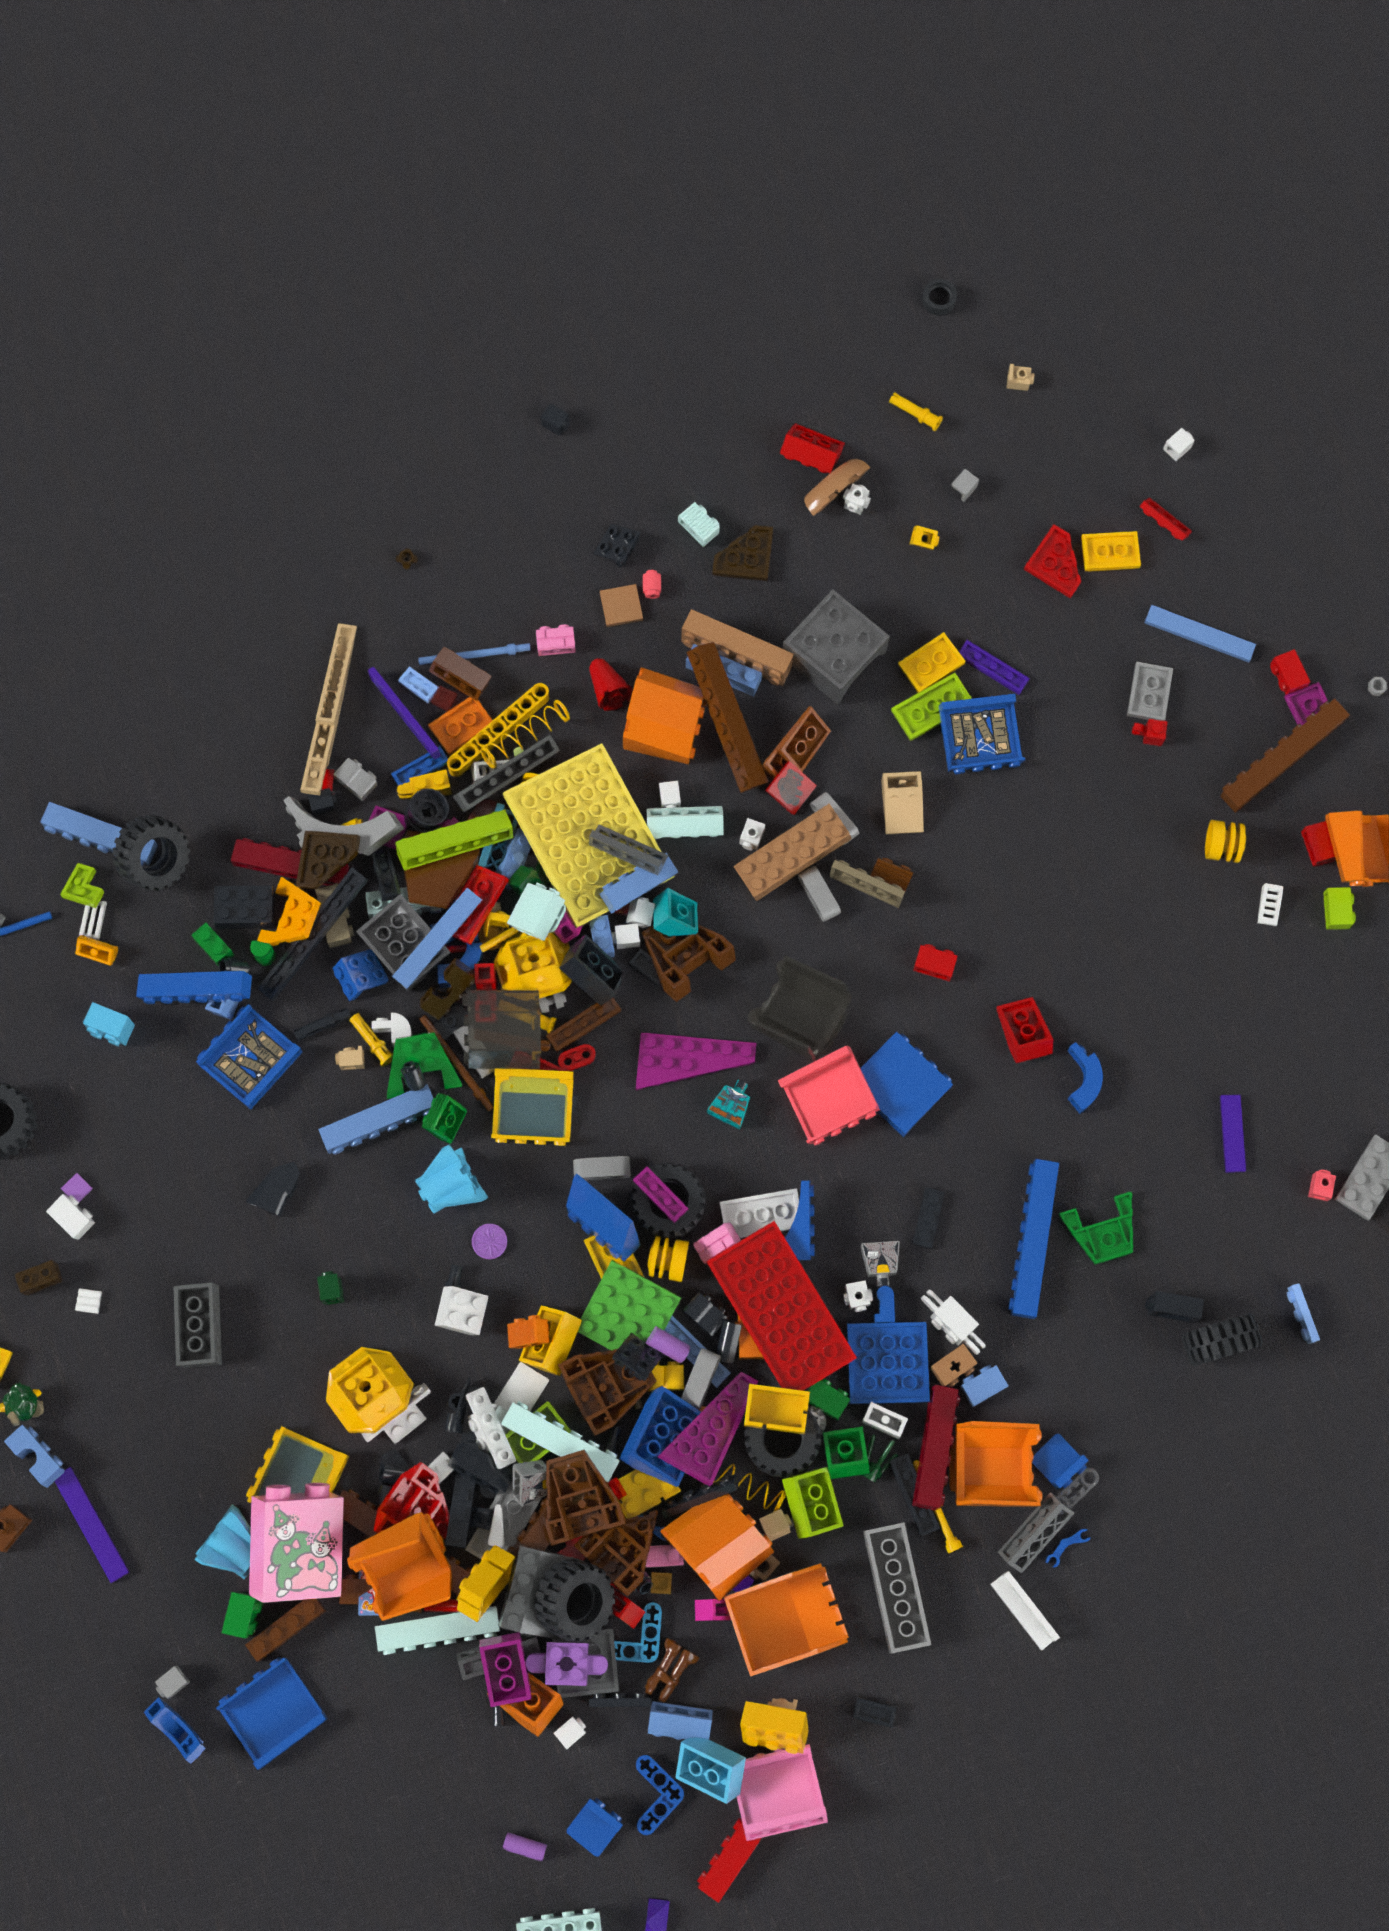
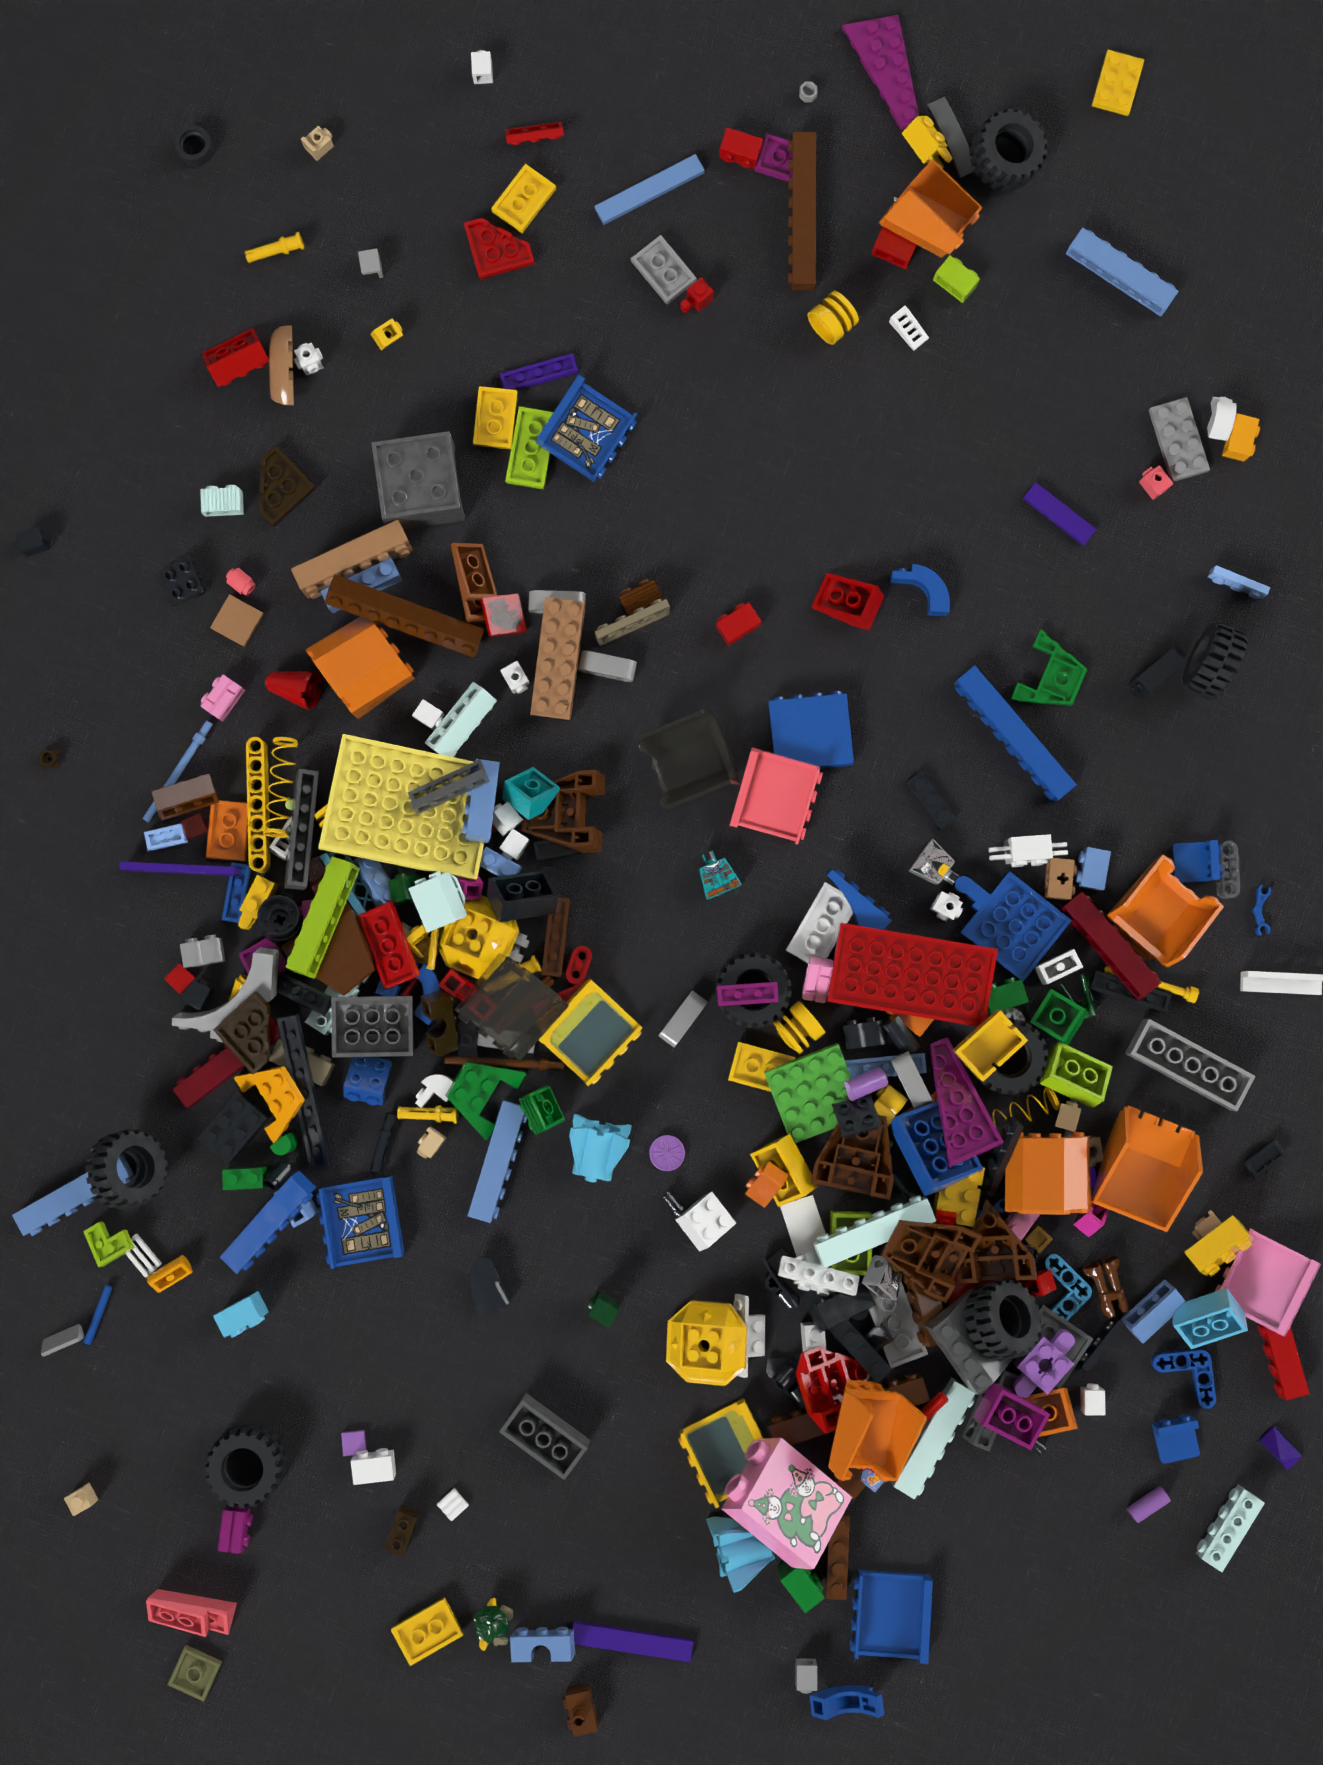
camera: 45 degrees left, 10 degrees up
(329, 709) = (125, 926): tan slope -> none
(413, 1075) = (488, 1107): black brick -> none
(437, 938) = (393, 997): medium blue tile -> none
(485, 1582) = (934, 1378): yellow piece -> none
(496, 1534) = (903, 1337): white slope -> none
(602, 1219) = (727, 1055): blue slope -> none
(680, 1057) = (644, 886): magenta wing -> none
(902, 802) = (589, 538): tan slope -> none
(1033, 1530) = (1233, 926): dark grey fence -> none

